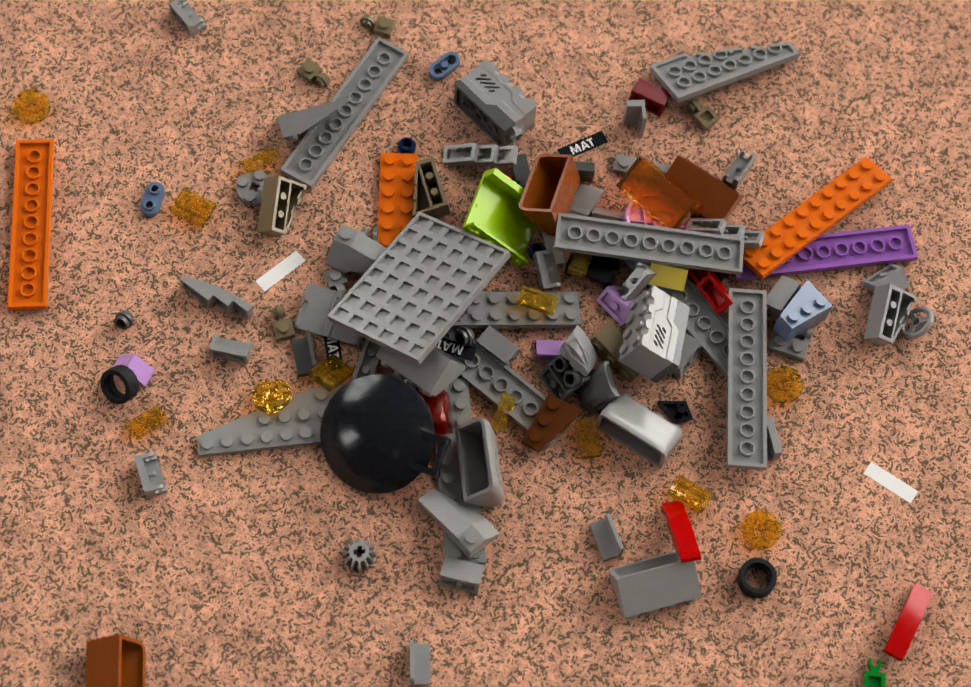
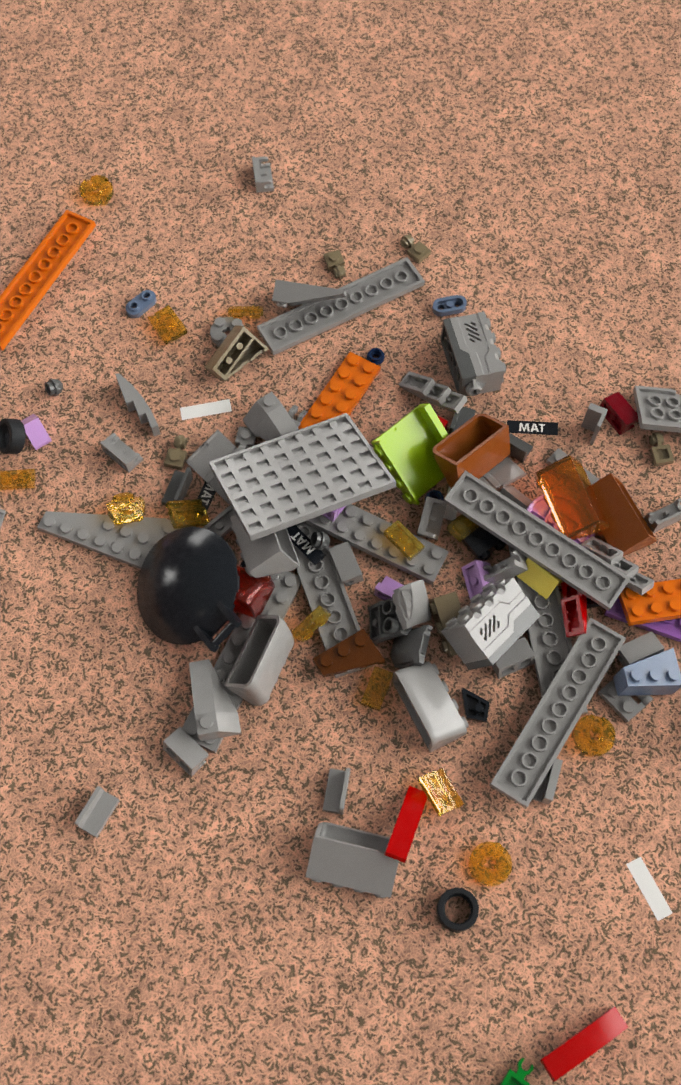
camera: 35 degrees right, 0 degrees up
(366, 557) = (111, 690): light grey gear -> none
(428, 191) = (369, 401): dark tan wedge -> none

